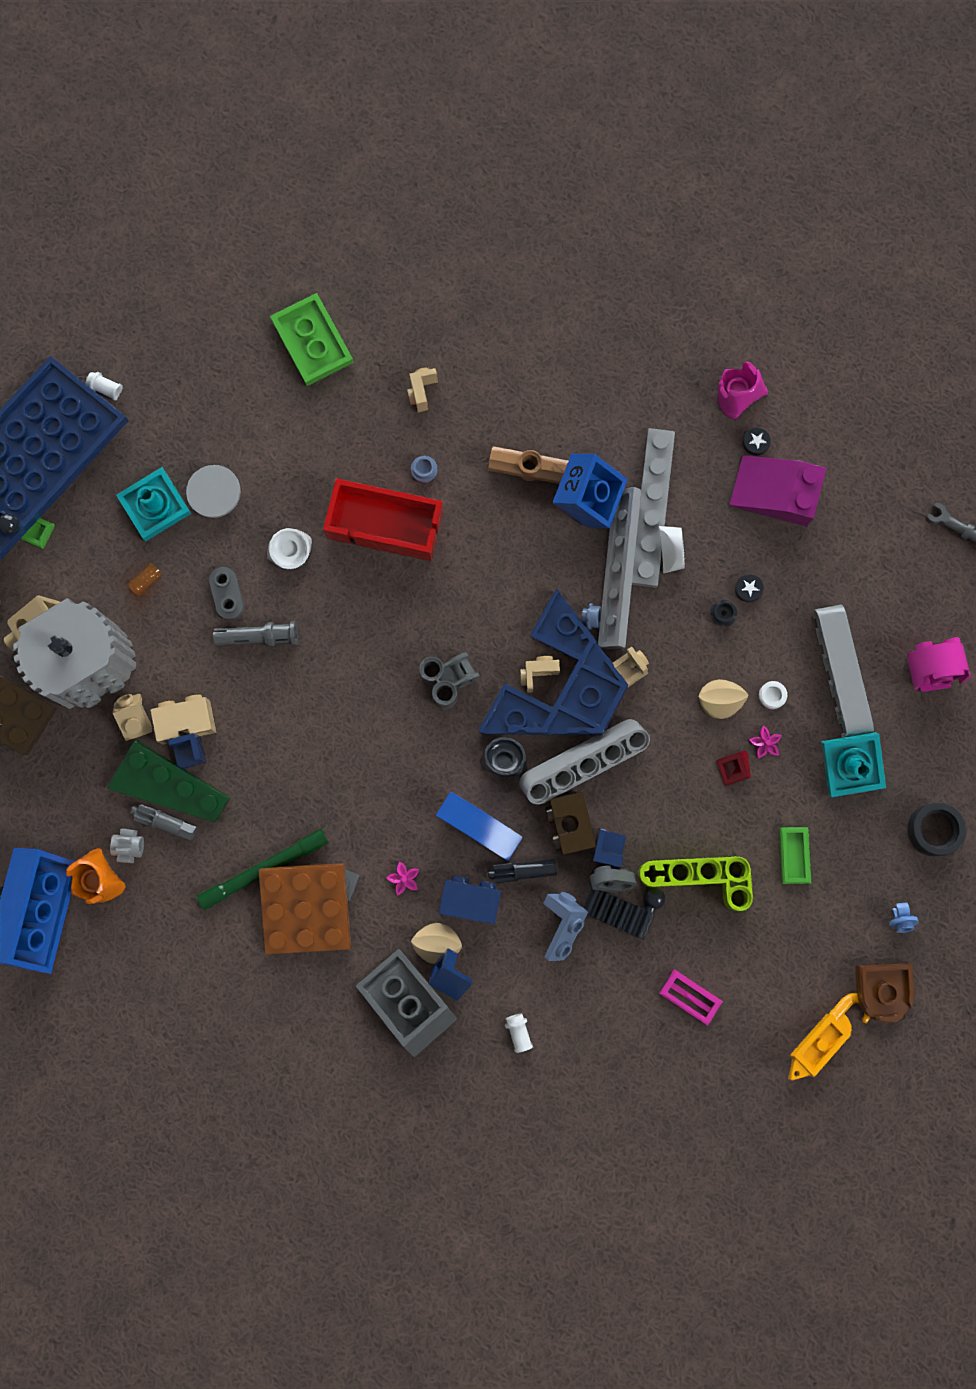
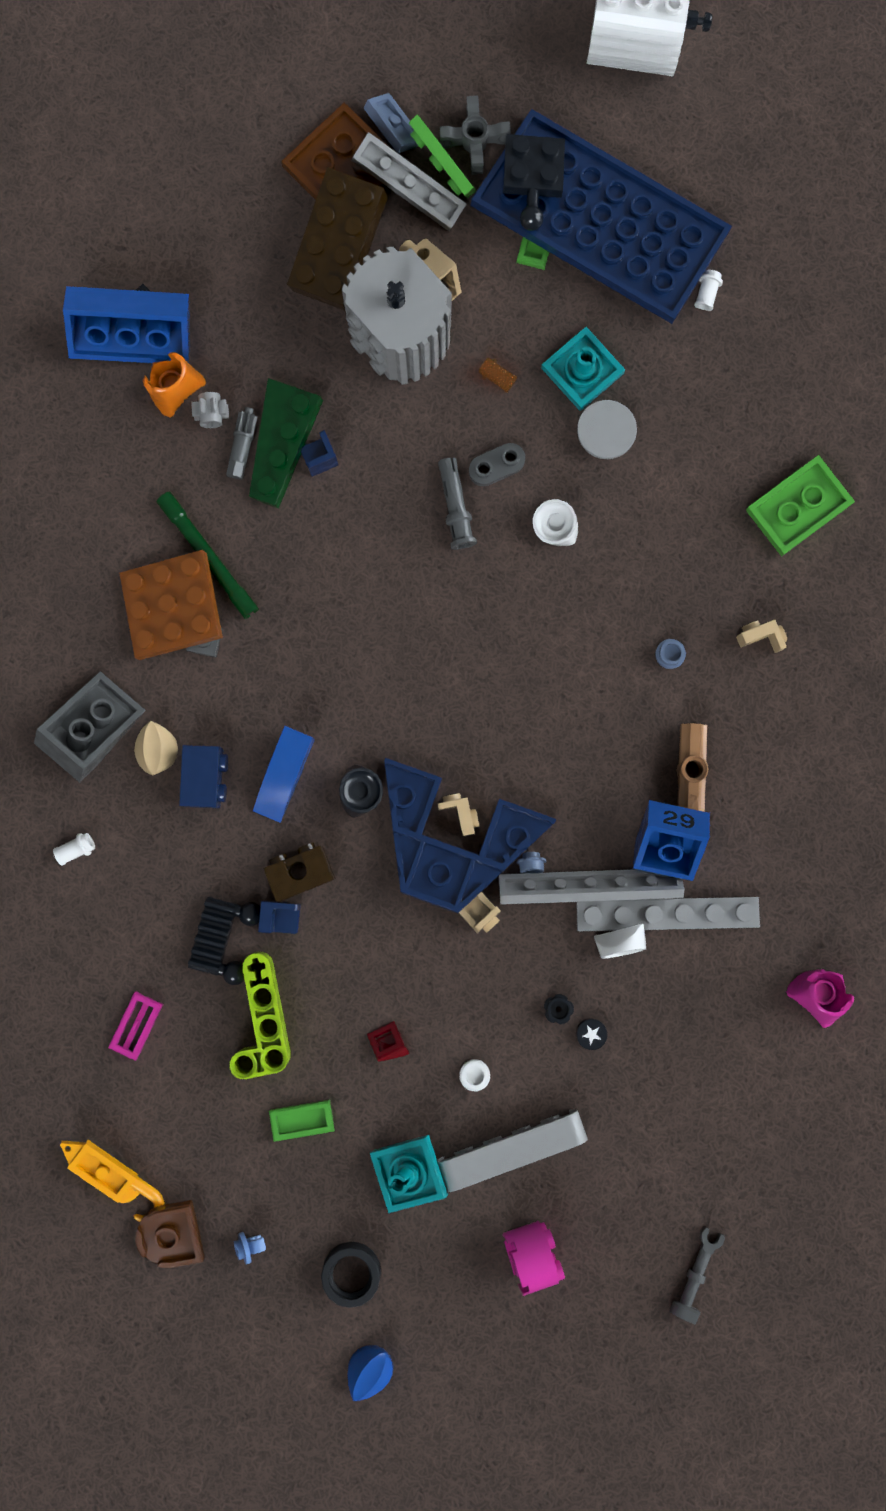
camera: 80 degrees right, 5 degrees up
(131, 716) = (347, 389): tan bracket -> none
(186, 717) = (355, 452): tan brick -> none
(383, 519) = (603, 618): red piece -> none
(403, 878) = (218, 703): dark pink plant -> none
(446, 978) = (117, 765): dark blue panel -> none
(449, 677) = (440, 718): dark grey piece -> none
(525, 870) = (243, 828): black piece -> none
(571, 924) = (200, 887): sand blue bracket -> none
(597, 762) = (368, 877): light grey beam -> none
(612, 880) = (247, 932): dark grey plate -> none
(722, 698) = (462, 1019): tan piece -> none
(756, 441) = (763, 1021): black tile -> none
(766, 743) = (420, 1073): dark pink plant -> none
(778, 488) = (711, 1053): magenta slope -> none

